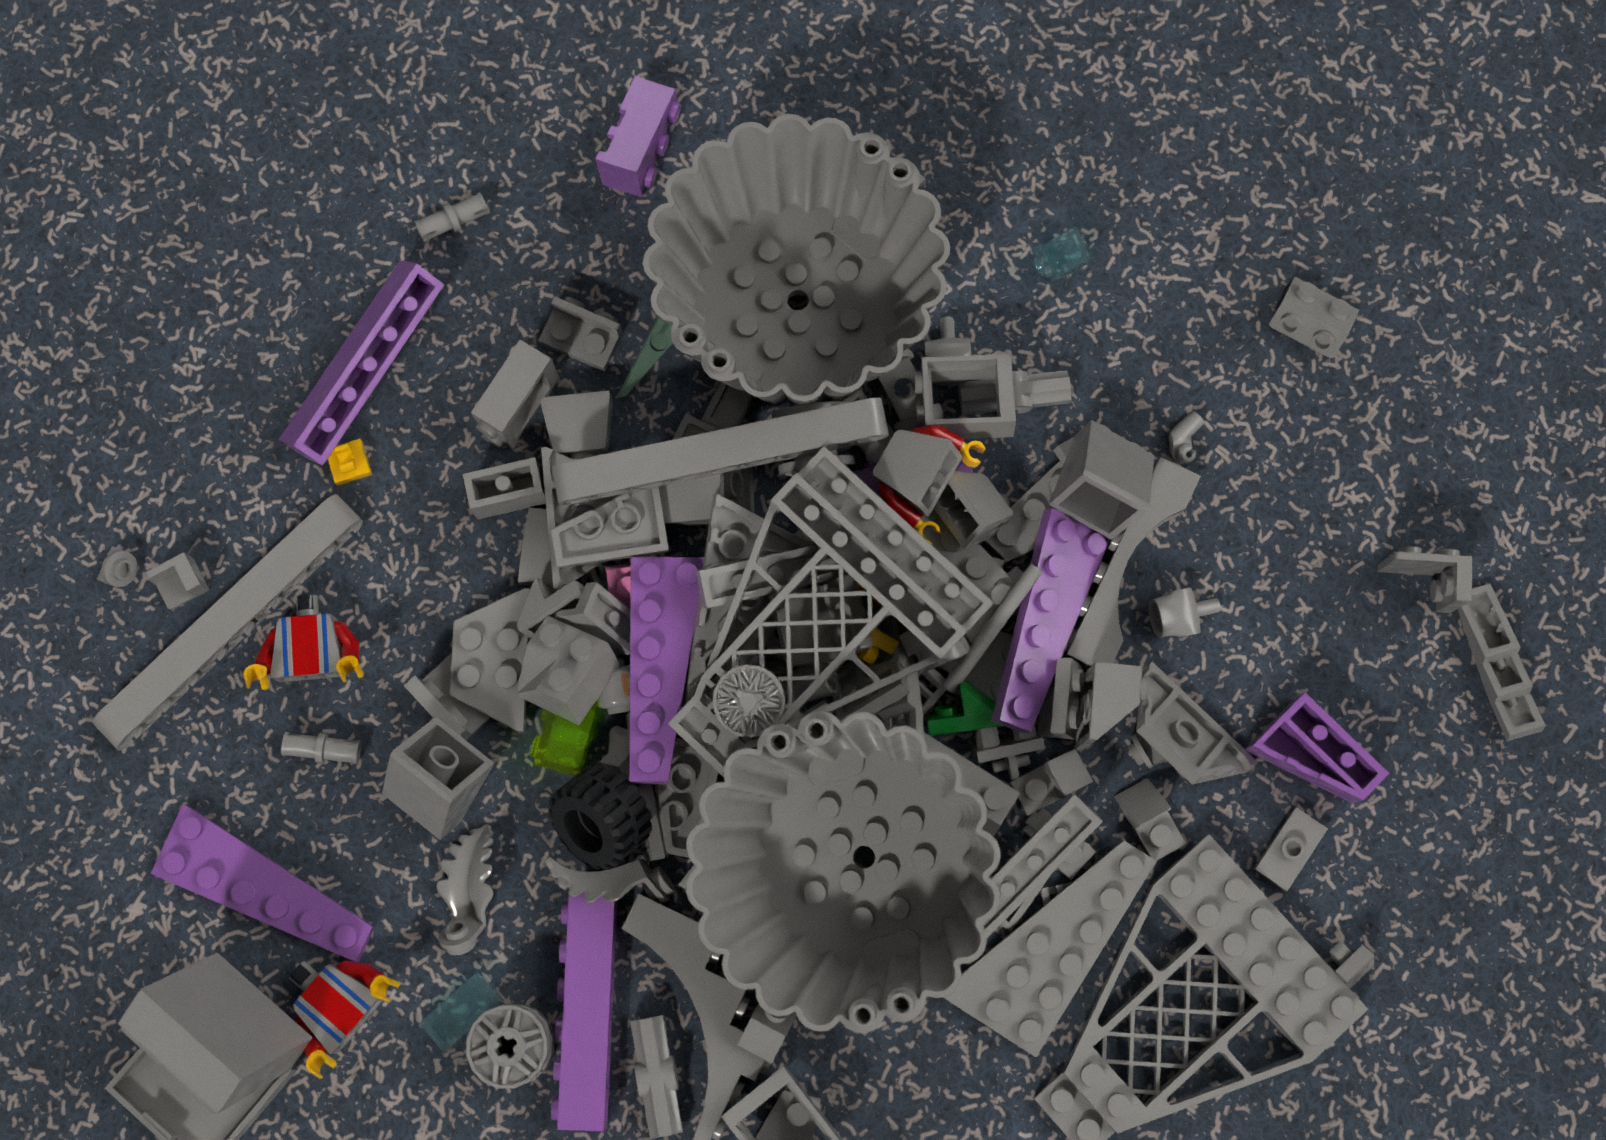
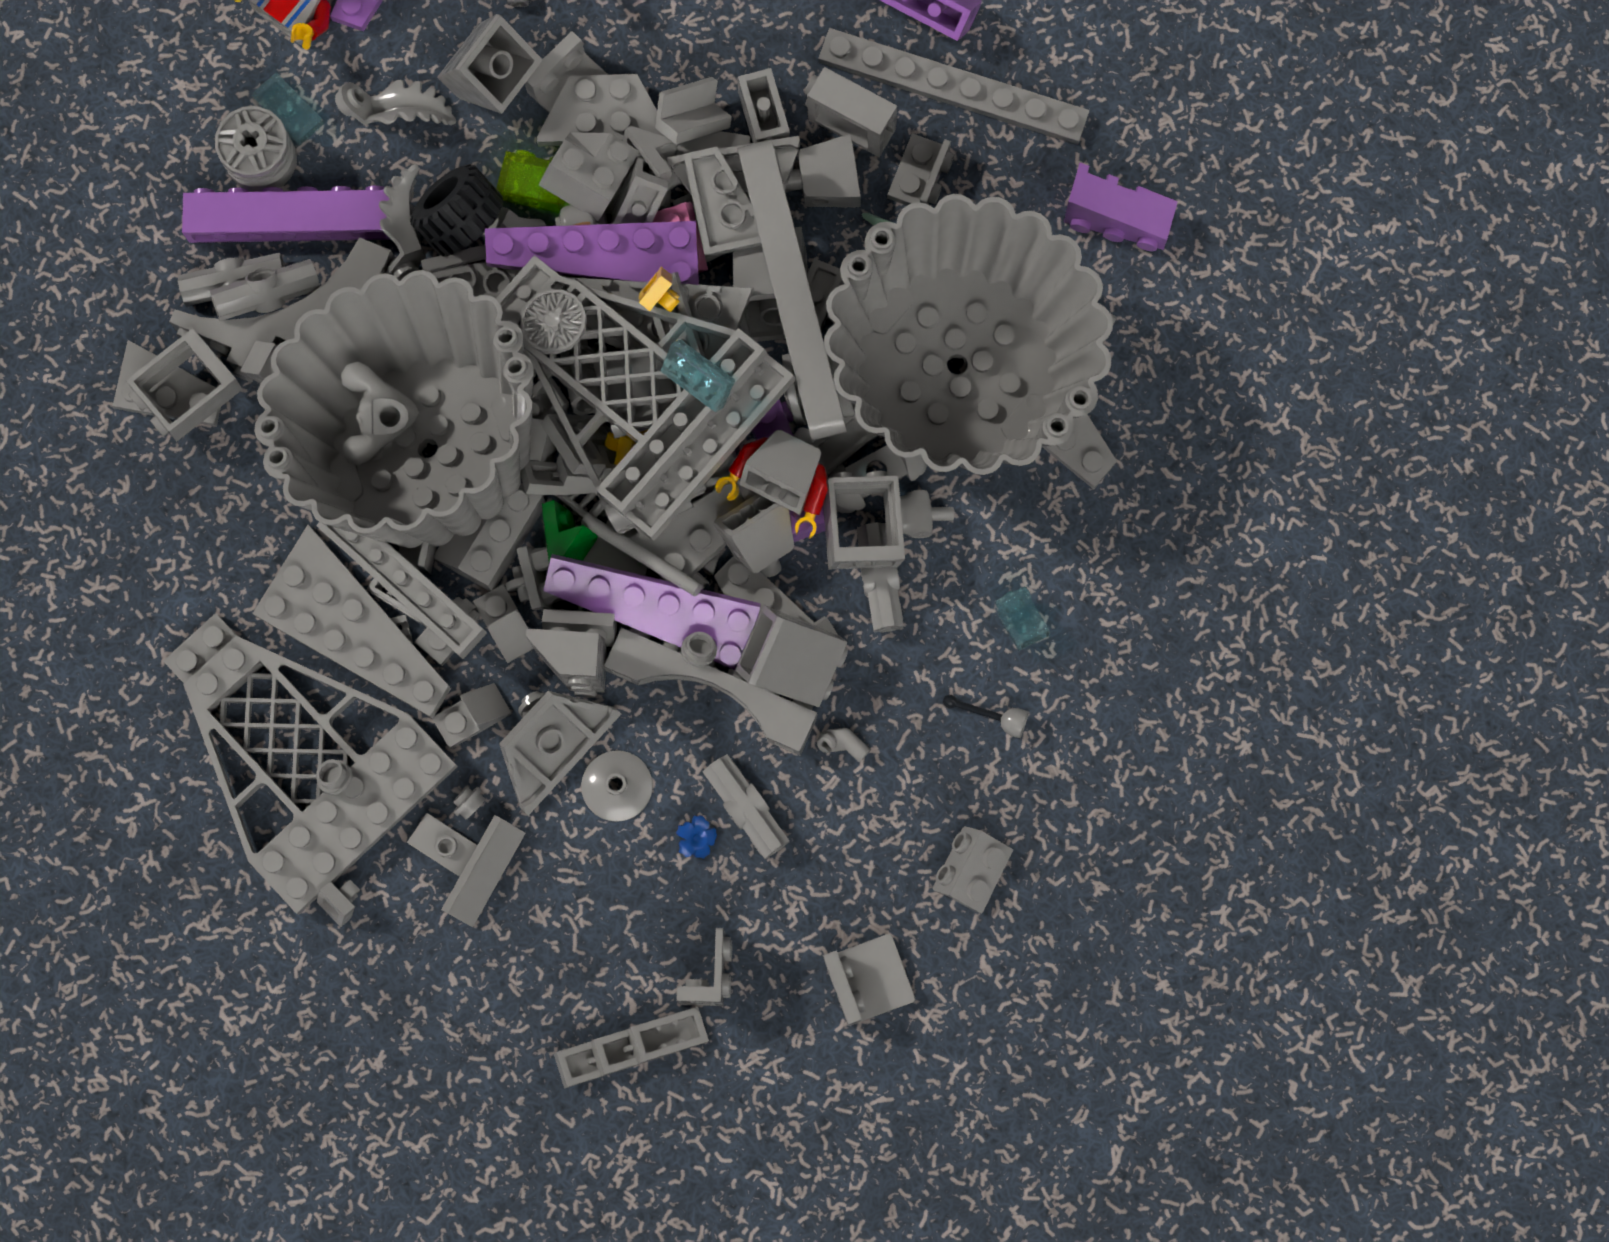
camera: 90 degrees right, 0 degrees up
(451, 217) = (1030, 46): light grey pin -> none
(487, 299) = (953, 86): none -> light grey plate
(505, 563) = (690, 111): none -> light grey panel
(677, 1035) = (264, 289): none -> light grey piece
(721, 586) = (659, 291): none -> yellow tile
(826, 540) = (697, 375): none -> clear light blue plate
(832, 902) = (381, 415): none -> light grey head
(1094, 572) = (699, 649): none -> light grey plate
(1164, 269) = (1012, 721): none -> hinge
(1179, 613) = (668, 739): light grey piece -> none
(1210, 682) = (618, 804): none -> light grey dish
(1226, 963) = (333, 776): none -> light grey plate
(1245, 823) = (468, 802): none -> light grey plate
(1251, 536) = (746, 806): none -> light grey piece
(1282, 588) = (696, 837): none -> blue plant
(1318, 750) = (537, 866): medium lavender wedge -> none
(1319, 809) = (483, 871): none -> light grey tile
(1427, 422) = (869, 979): none -> light grey bracket

